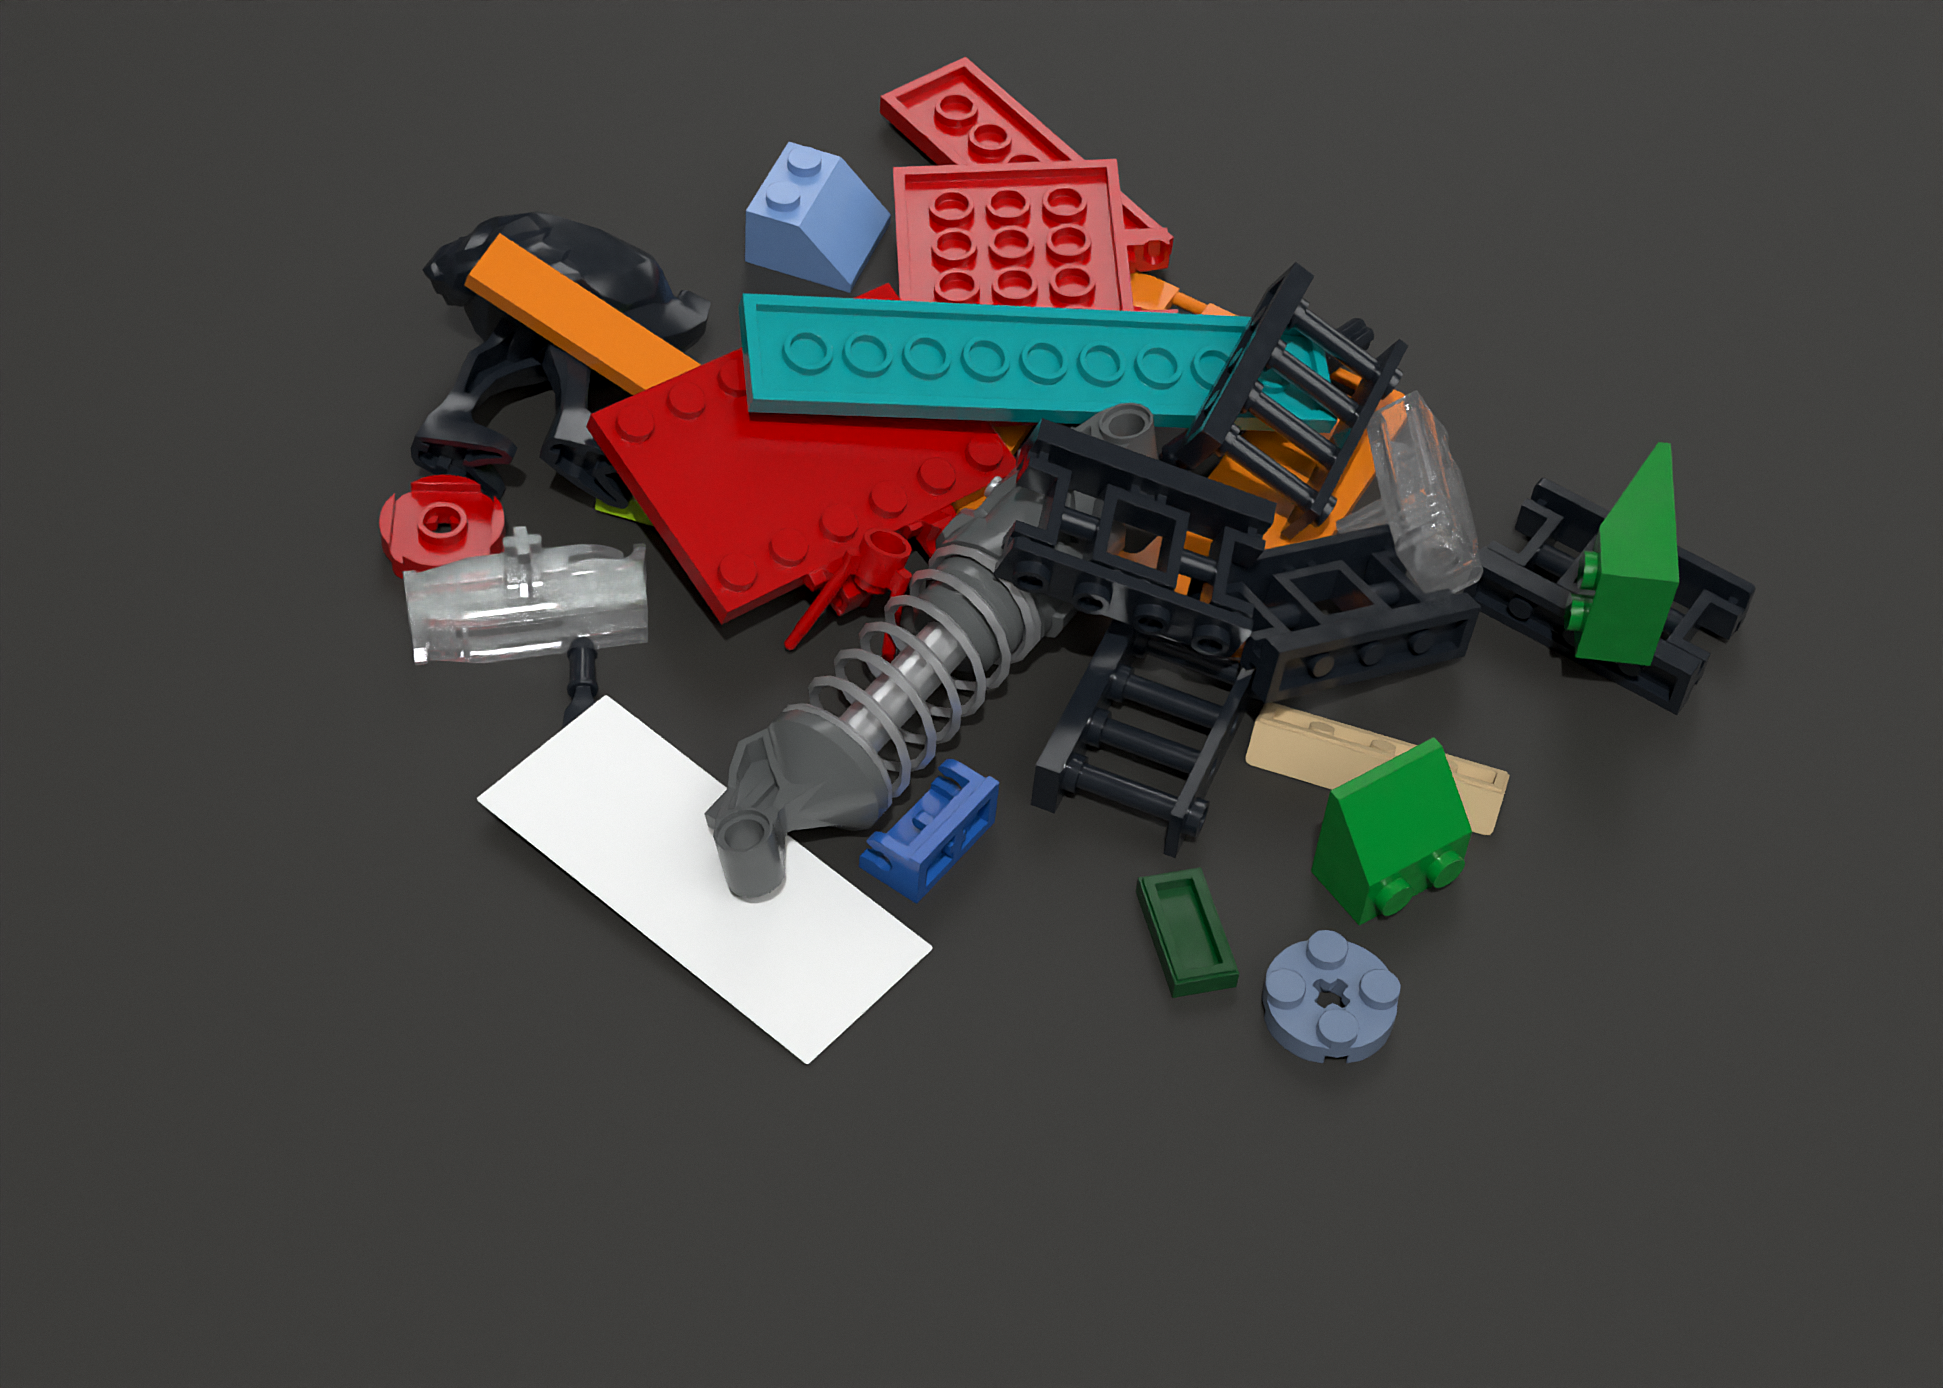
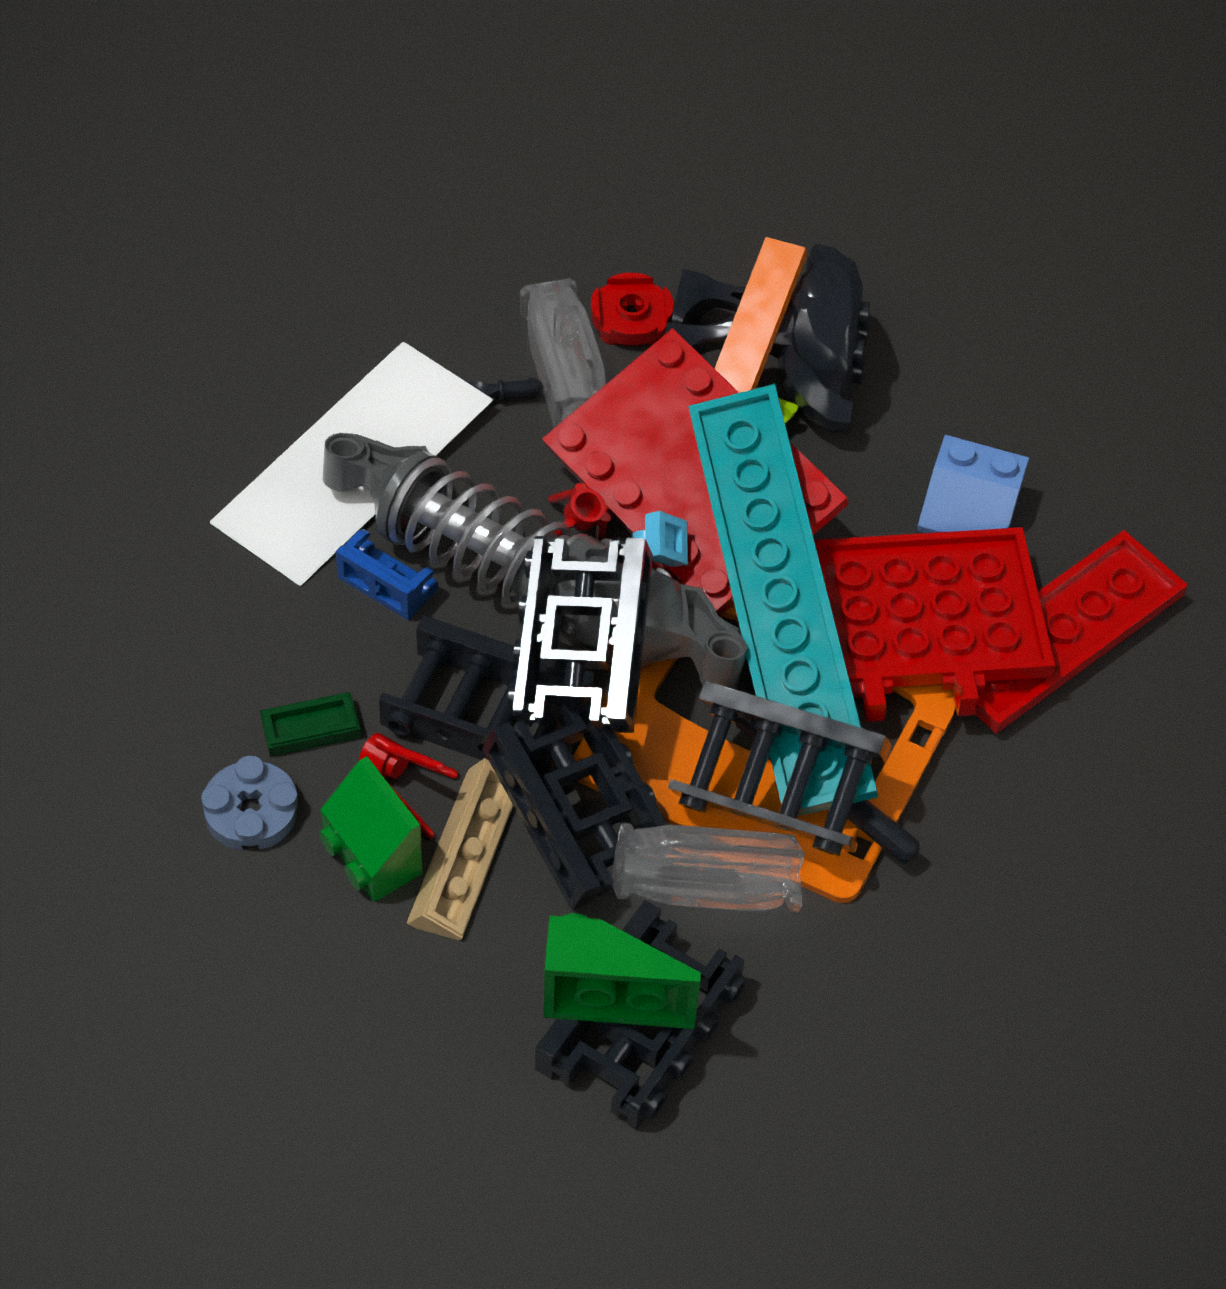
camera: 90 degrees right, 5 degrees up
(941, 480) = (666, 538): none -> medium azure tile
(1252, 834) = (391, 762): none -> red plant

